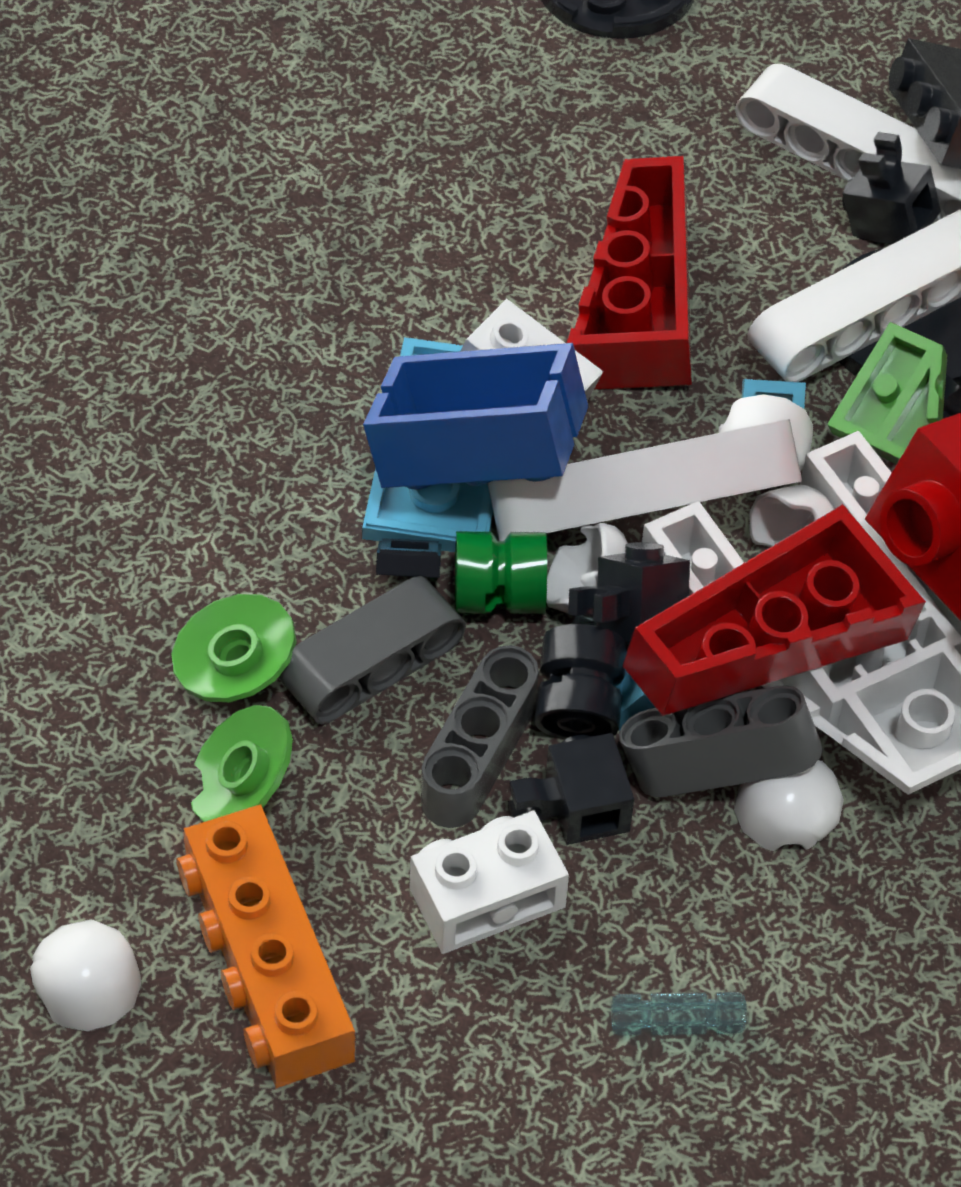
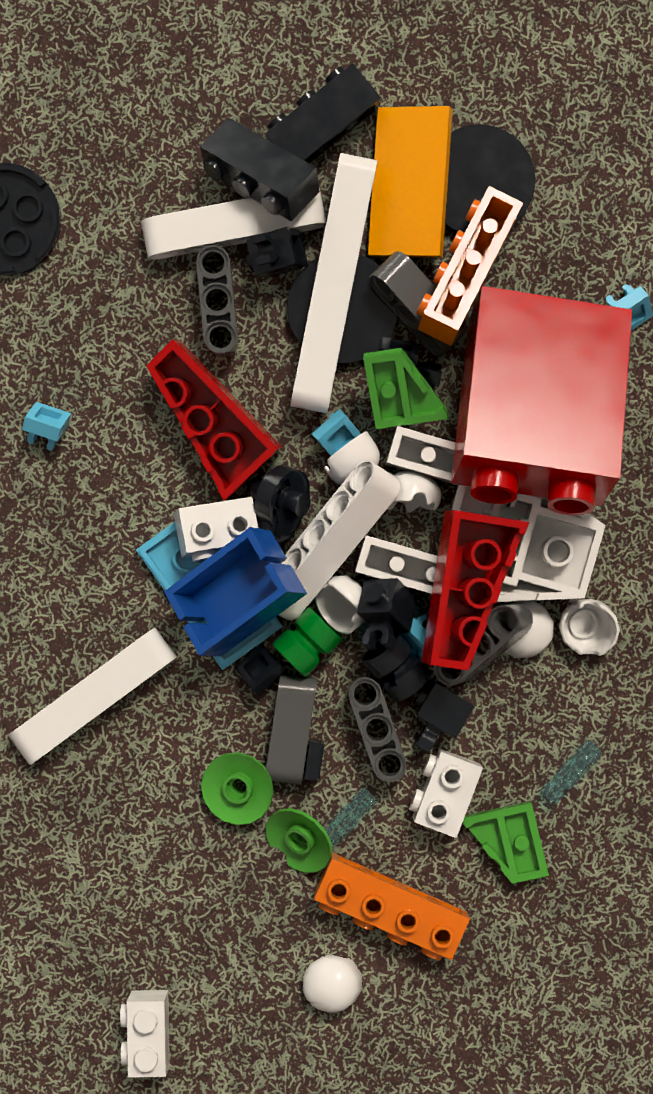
camera: 40 degrees left, 35 degrees up
(182, 422) = (92, 696): none -> white beam
(328, 809) = (350, 815): none -> clear light blue axle
(362, 701) = (314, 759): none -> black tile
(446, 151) = (45, 422): none -> medium azure tile
(511, 1016) = (511, 839): none -> bright green wing
(631, 417) = (279, 506): none -> black pin
(770, 196) = (212, 284): none -> dark grey beam
(880, 856) = (589, 627): none -> white hair

